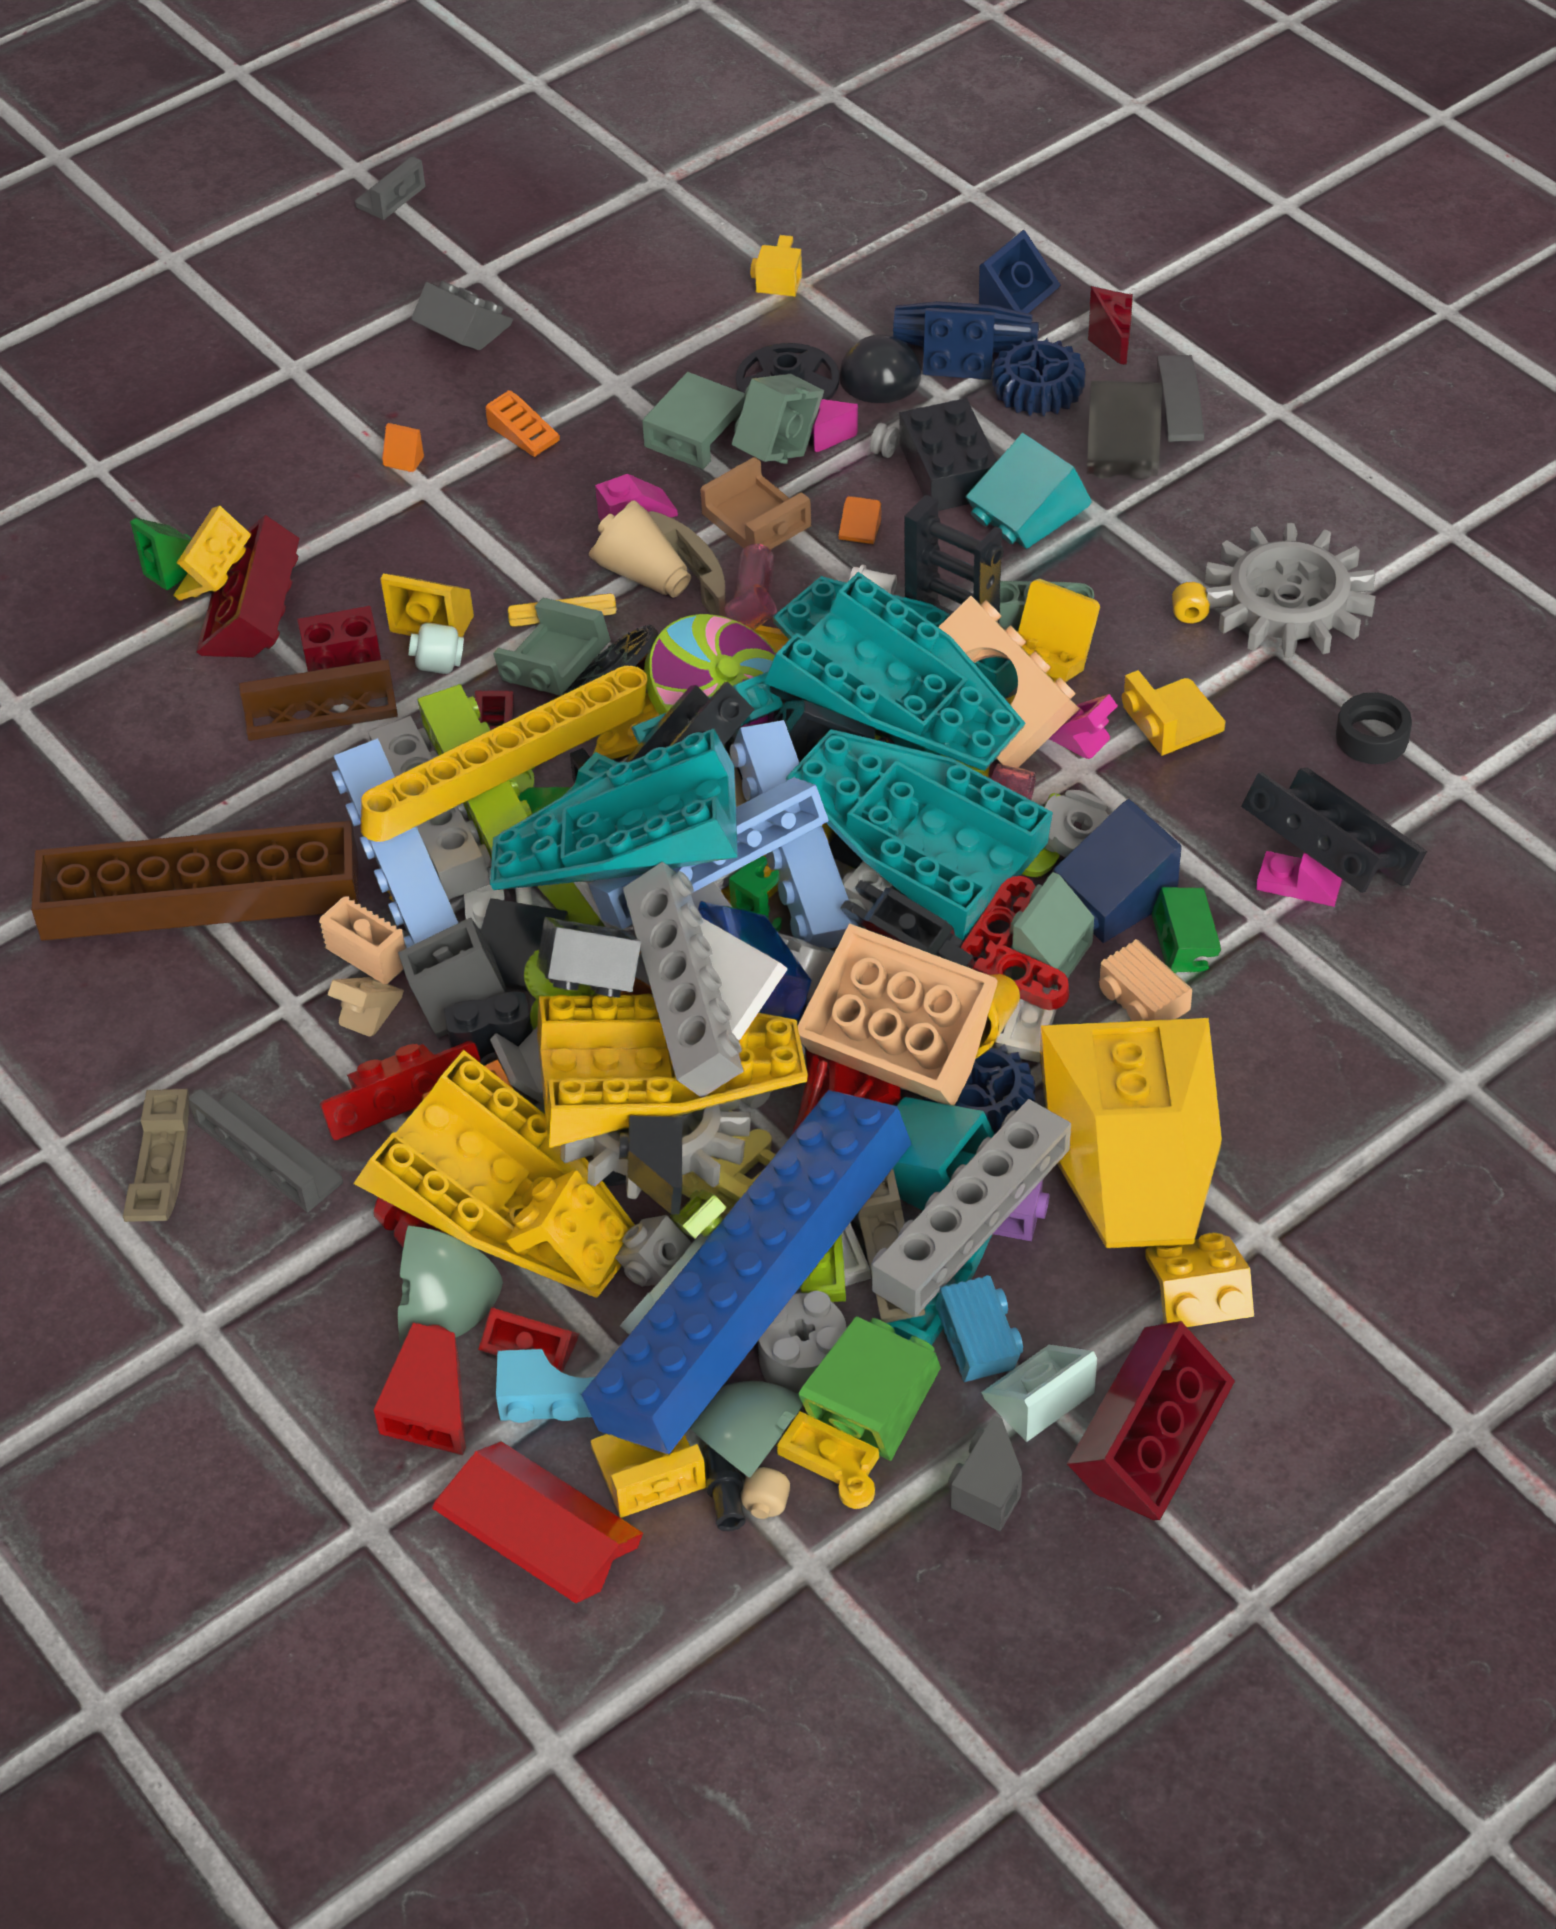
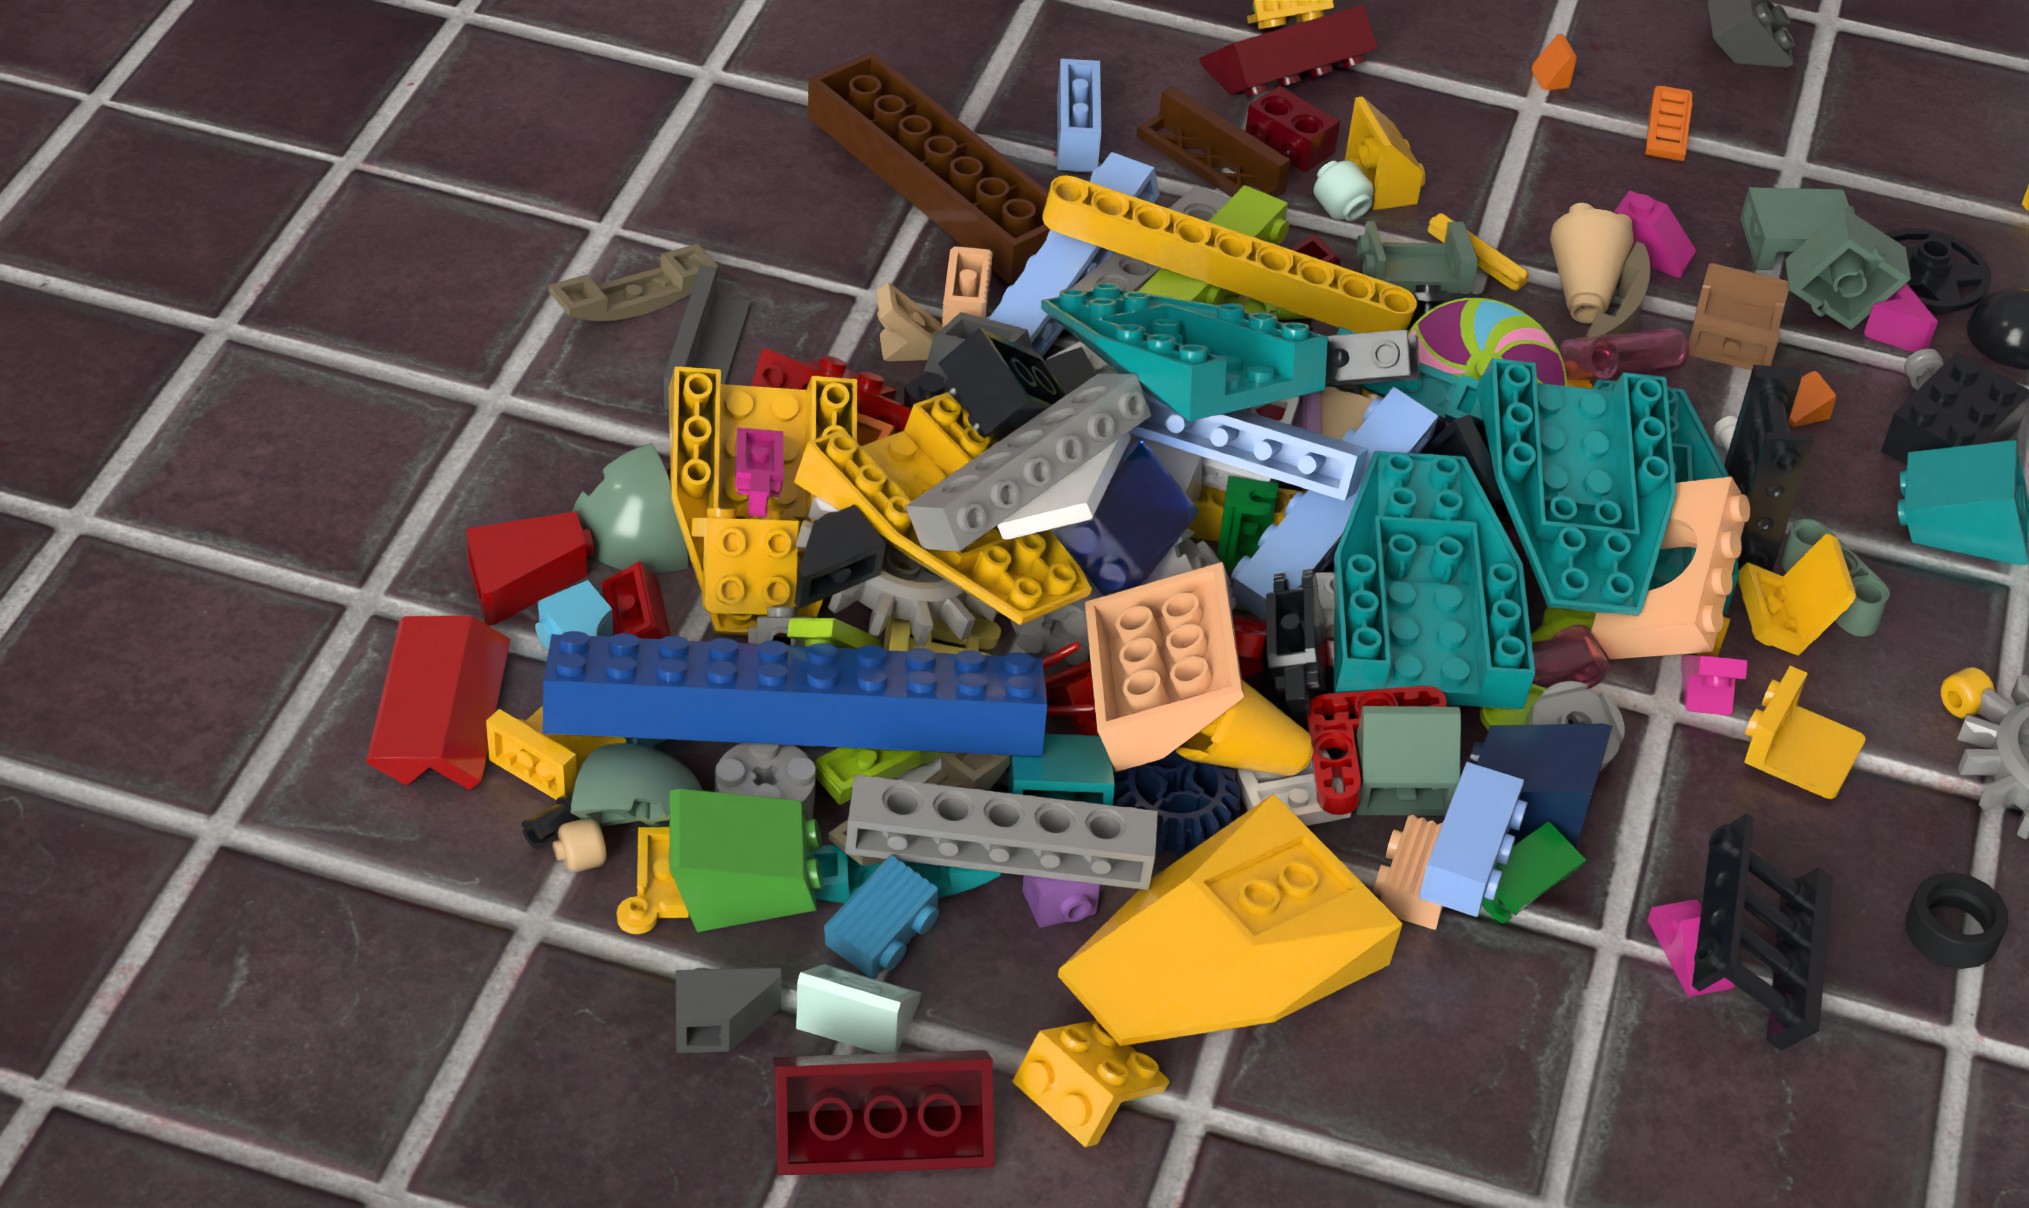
camera: 50 degrees right, 5 degrees down
(215, 760) = (1078, 115): none -> light blue brick
(500, 1165) = (759, 467): none -> dark pink hinge
(1163, 935) = (1474, 840): none -> light blue brick

